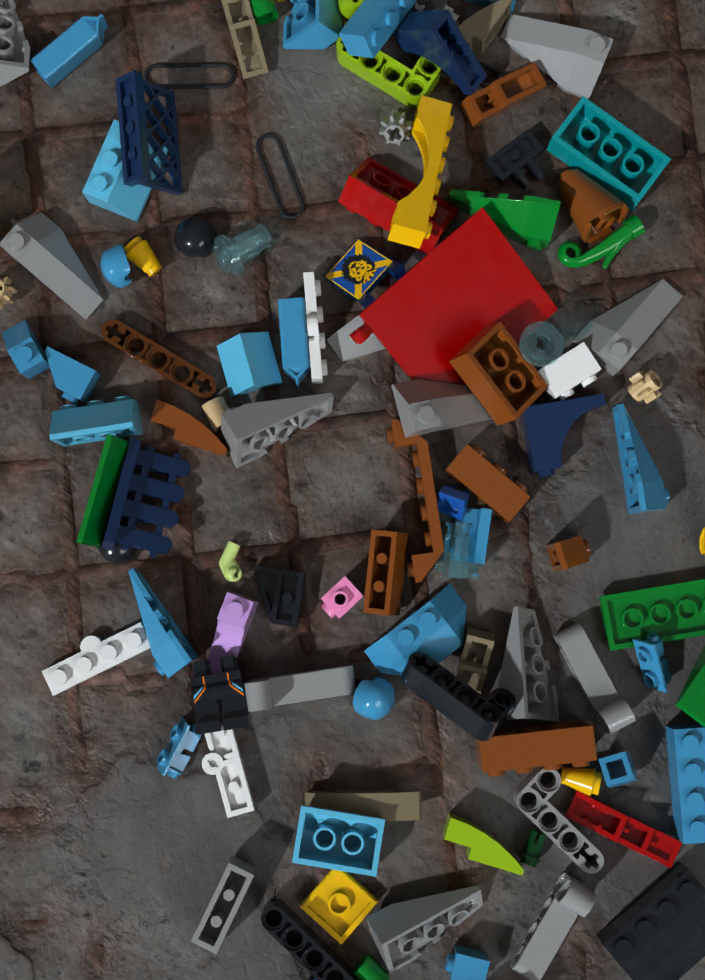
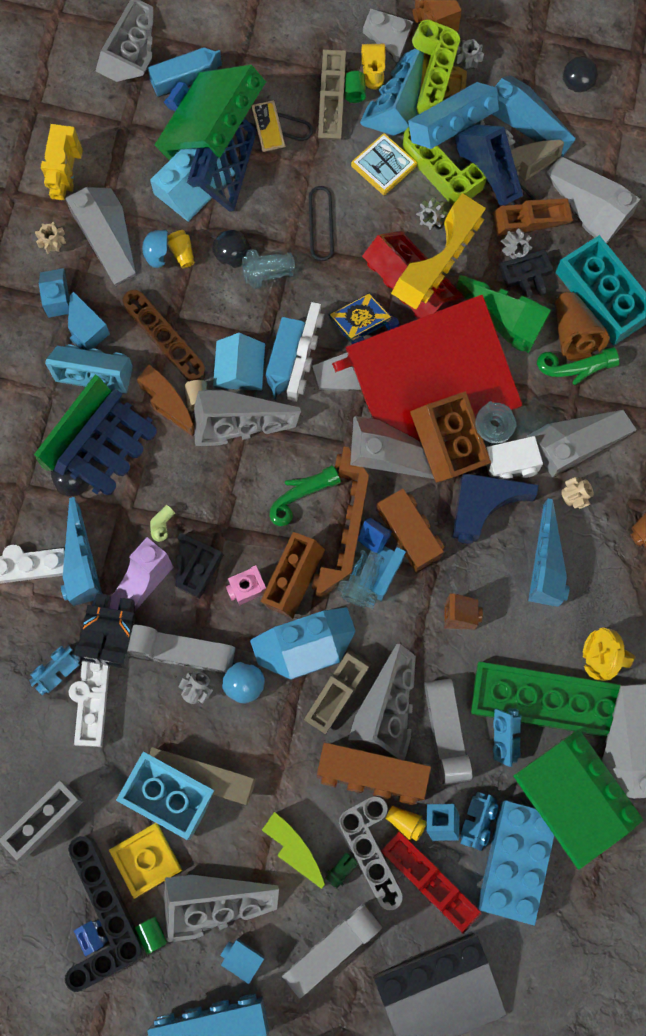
camera: 15 degrees right, 10 degrees down
(79, 84) = (176, 96): none -> blue tile
(120, 92) = (211, 110): none -> green panel
(185, 84) = (268, 126): none -> slope
(324, 86) = (383, 164): none -> tile
(327, 719) = (195, 687): none -> light grey gear
(362, 475) = (302, 488): none -> green plant
(456, 699) = (316, 703): black beam -> none
(496, 132) = (516, 244): none -> light grey gear
(651, 765) = (478, 831): none -> dark azure hinge

